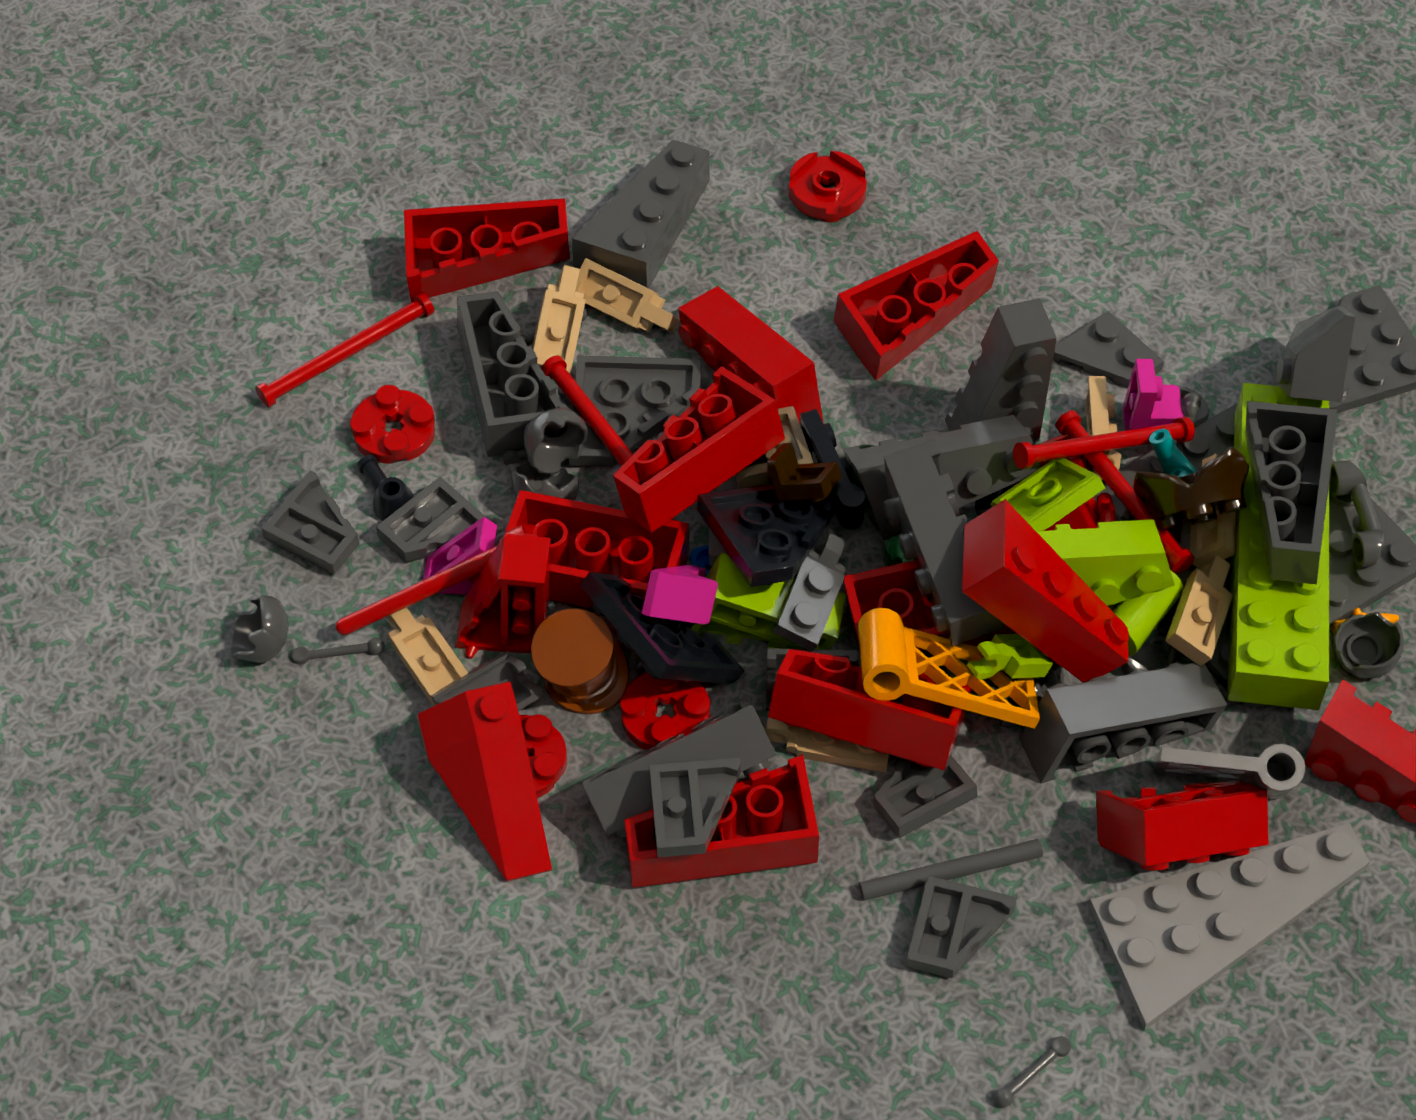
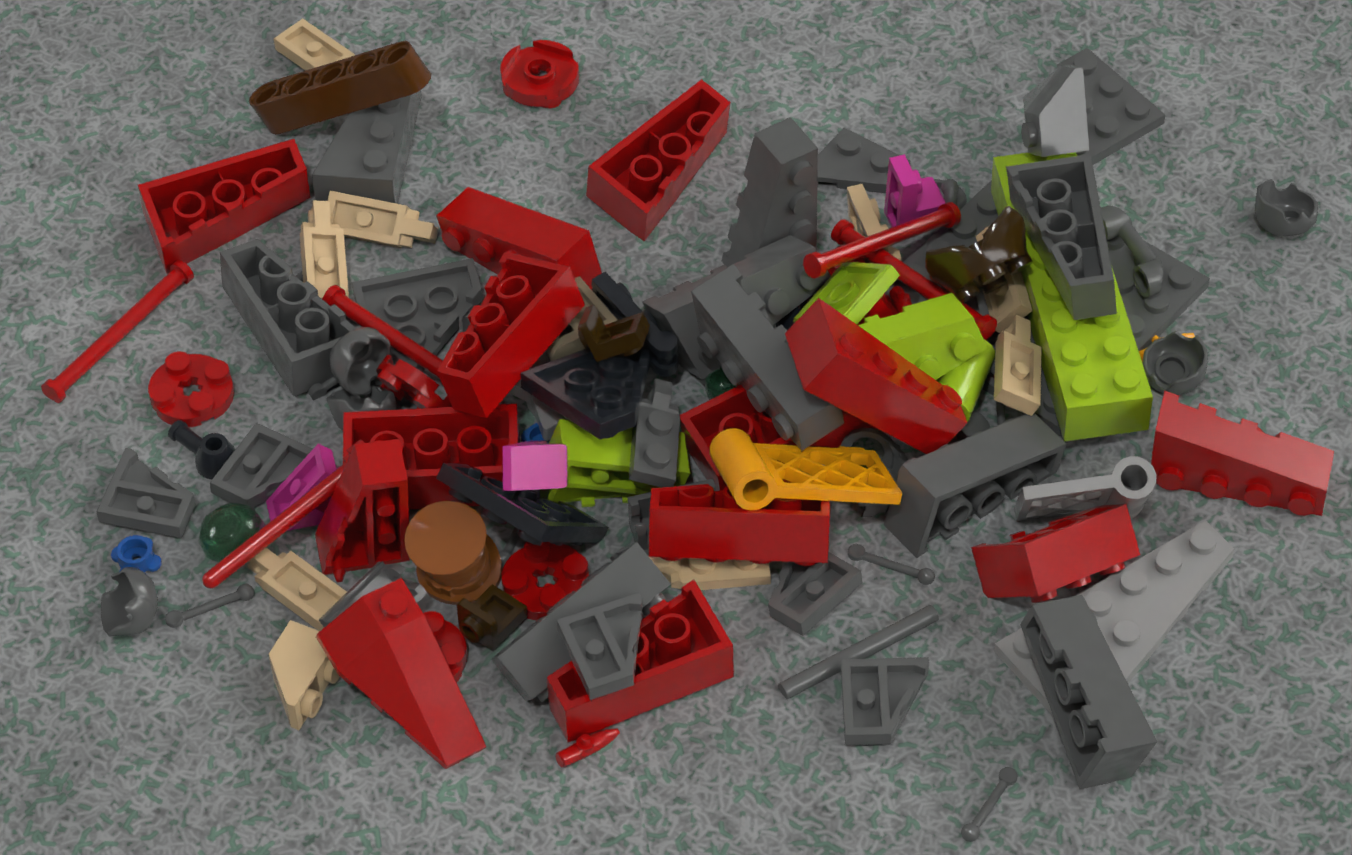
camera: 15 degrees left, 5 degrees down
(286, 572) = (136, 546): none -> blue plate
(379, 578) = (227, 529): none -> clear green hair
(395, 746) = (300, 672): none -> tan slope
(589, 472) = (409, 383): none -> red plate
(597, 736) = (490, 617): none -> dark brown bracket
(625, 119) = (309, 46): none -> tan hinge
(625, 157) = (340, 87): none -> reddish brown beam
(648, 896) = (586, 746): none -> red helmet
(983, 763) = (857, 552): none -> dark grey hinge
(1012, 655) = (859, 444): lime plate -> none
(1164, 983) = (1086, 692): none -> dark grey wedge
(1169, 455) = (940, 234): teal arm -> none

